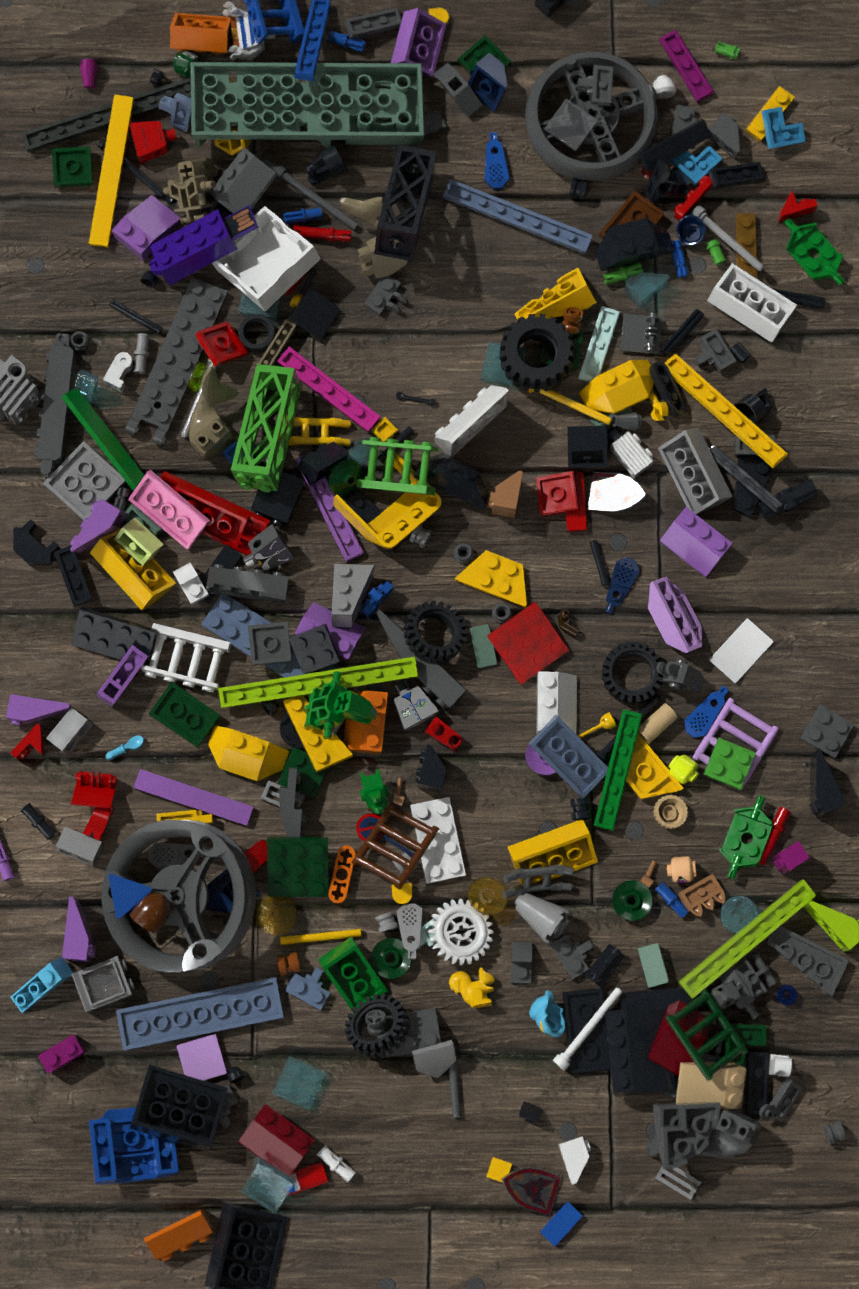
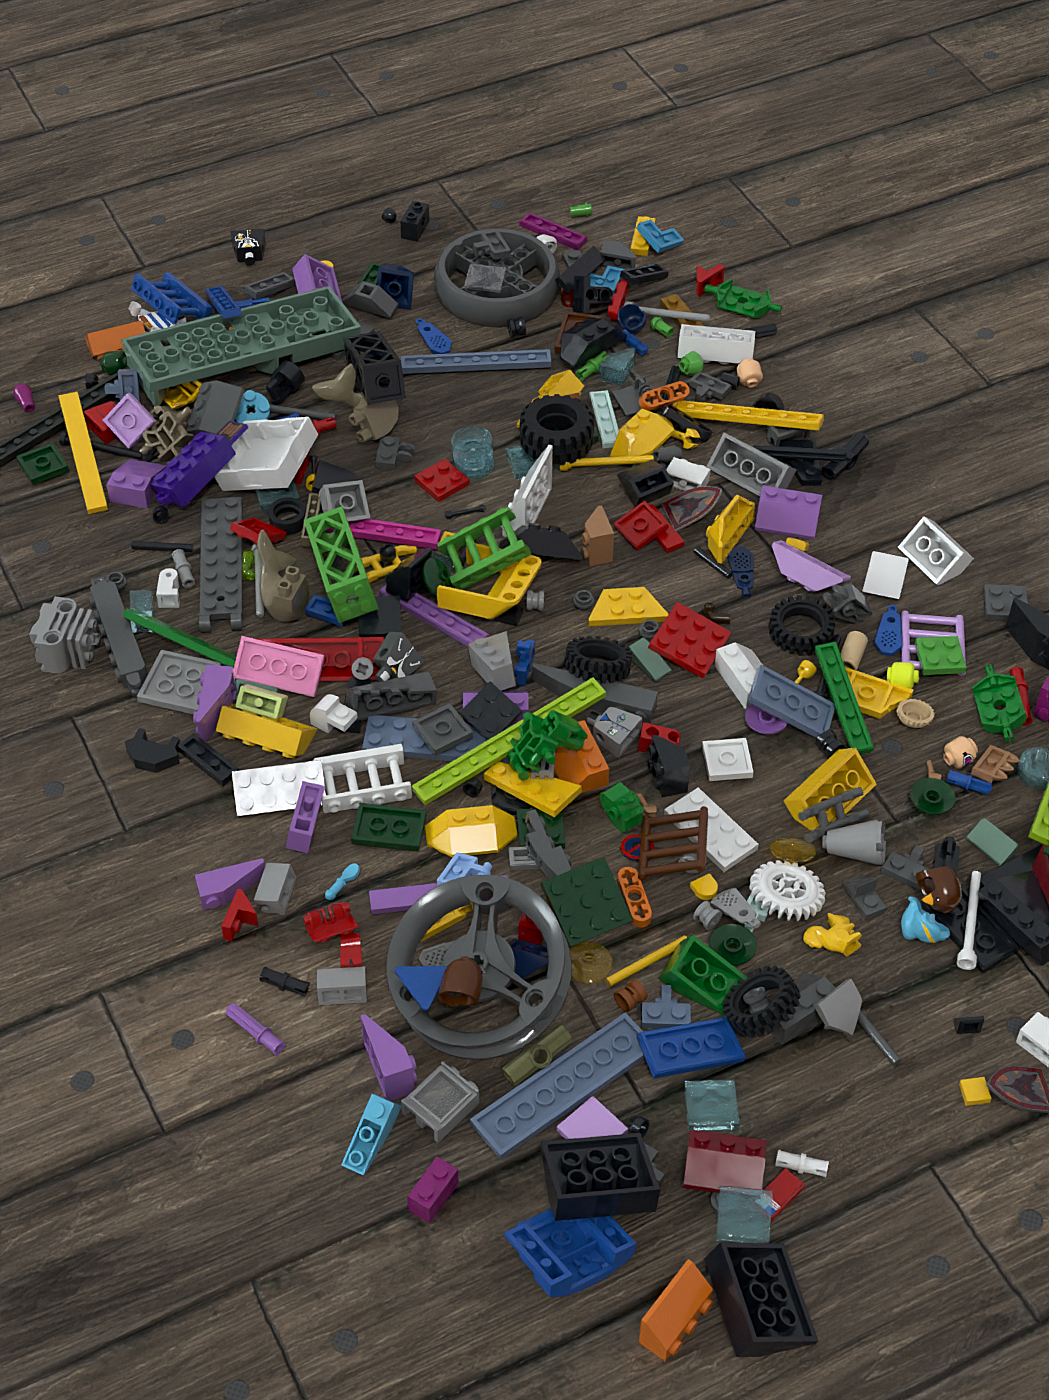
camera: 25 degrees left, 30 degrees down
(162, 161) = (129, 420): none -> lavender tile
(191, 982) = (549, 1046): none -> olive piece
(215, 788) = (461, 866): none -> light blue plate
(240, 541) = (366, 668): none -> light grey wheel
(291, 192) = (258, 402): none -> medium azure plate
(307, 1031) = (690, 1047): none -> blue tile
(308, 350) = (349, 496): none -> light grey slope
(319, 429) = (387, 552): none -> black hinge
(413, 351) = (441, 480): none -> red plate
(450, 329) = (473, 451): none -> clear light blue wheel
(488, 780) = (727, 759): none -> white plate
(576, 996) = (943, 889): none -> reddish brown piece
(630, 536) = (730, 527): none -> yellow wedge
(647, 357) = (669, 390): none -> orange beam
(682, 581) = (799, 544): none -> yellow tile
(713, 317) = (691, 363): none -> bright green cone
(762, 353) = (749, 373): none -> light nougat head
(799, 648) = (935, 551): none -> white slope

